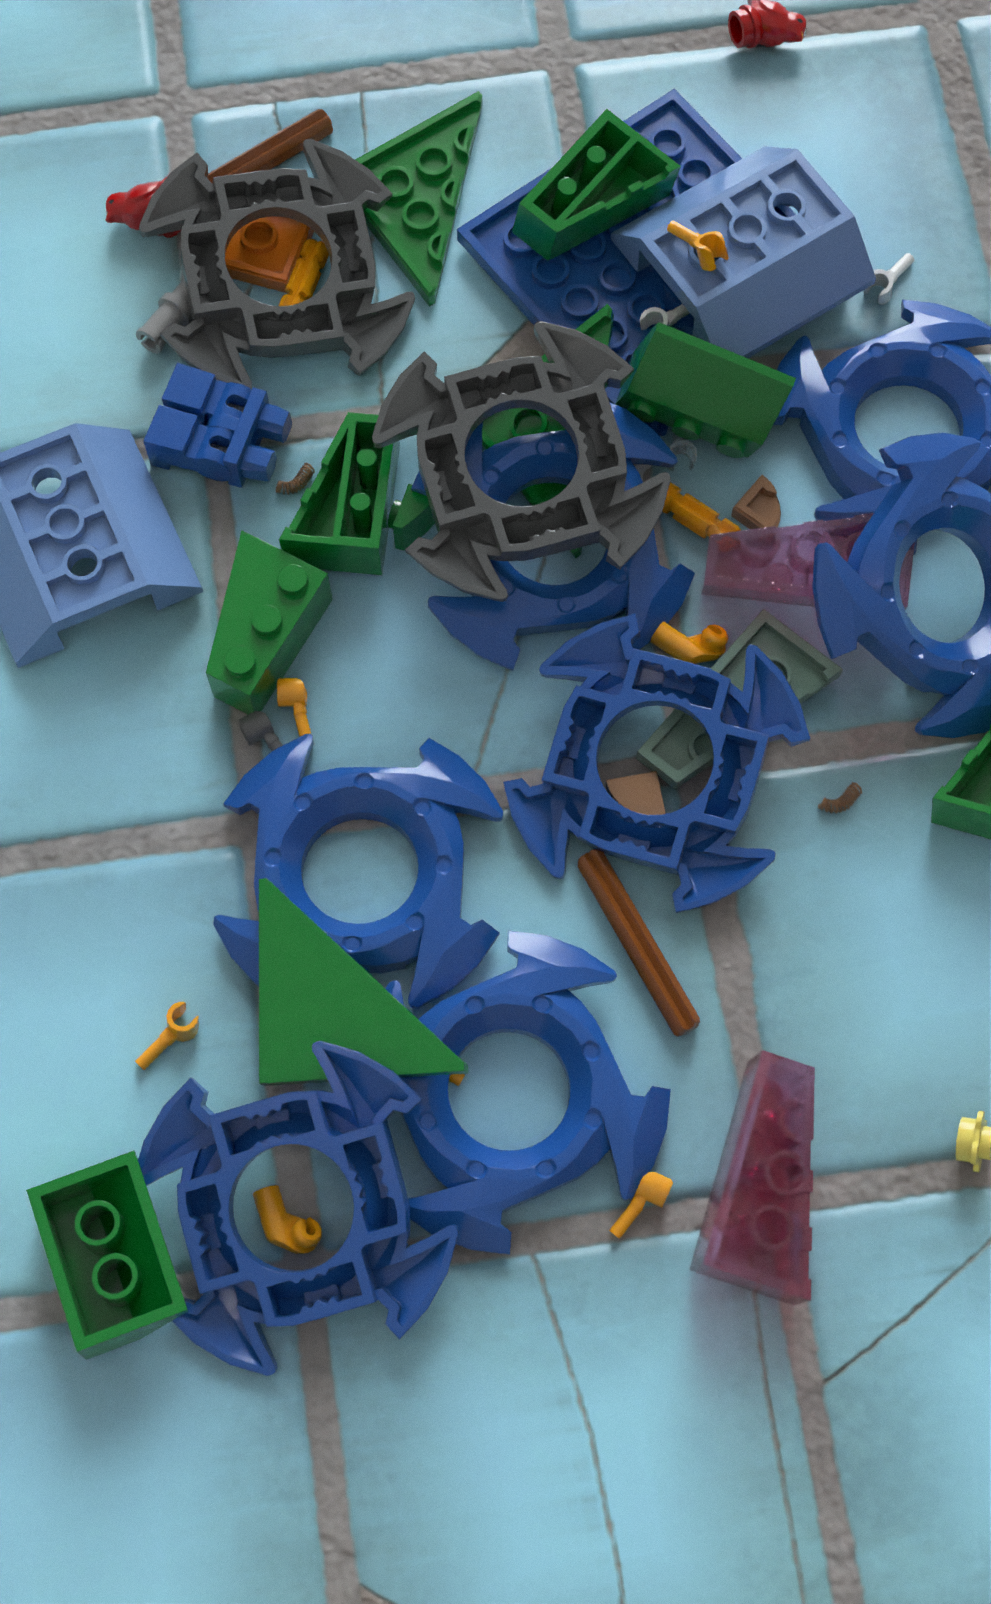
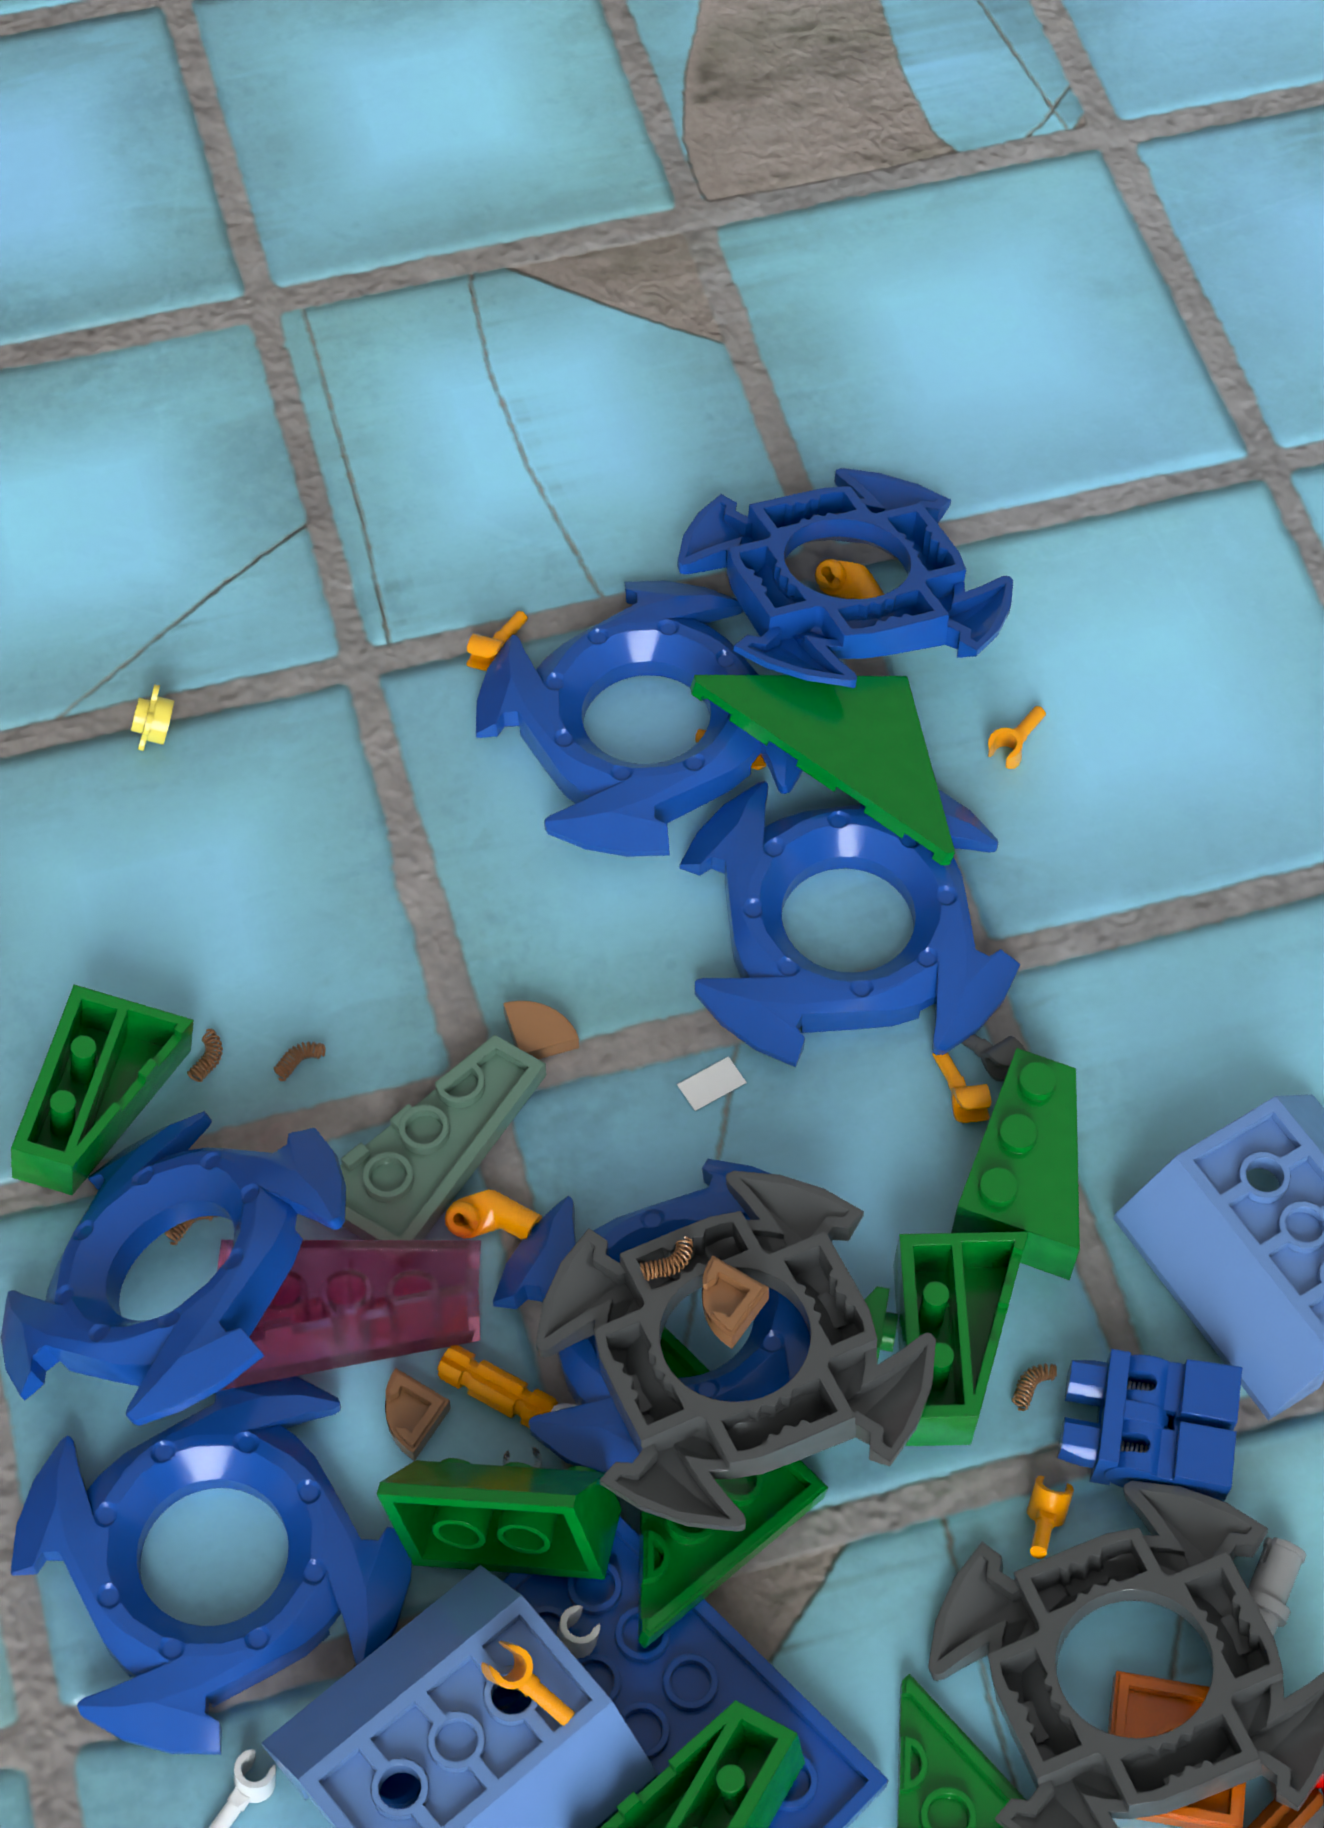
camera: 170 degrees right, 10 degrees down
(107, 1254) = (1025, 517): green slope -> none
(305, 273) = (1097, 1670): light orange axle -> none
(311, 380) = (1048, 1511): none -> light orange hand
(499, 743) = (711, 1083): none -> white sticker
(521, 471) = (730, 1300): none -> medium nougat tile
(558, 511) = (675, 1259): none -> medium nougat leg
(638, 942) = (525, 879): dark orange axle -> none
(681, 842) = (558, 1126): blue piece -> none
(761, 1192) = (376, 641): clear pink wedge -> none
(916, 823) = (204, 1064): none -> medium nougat leg

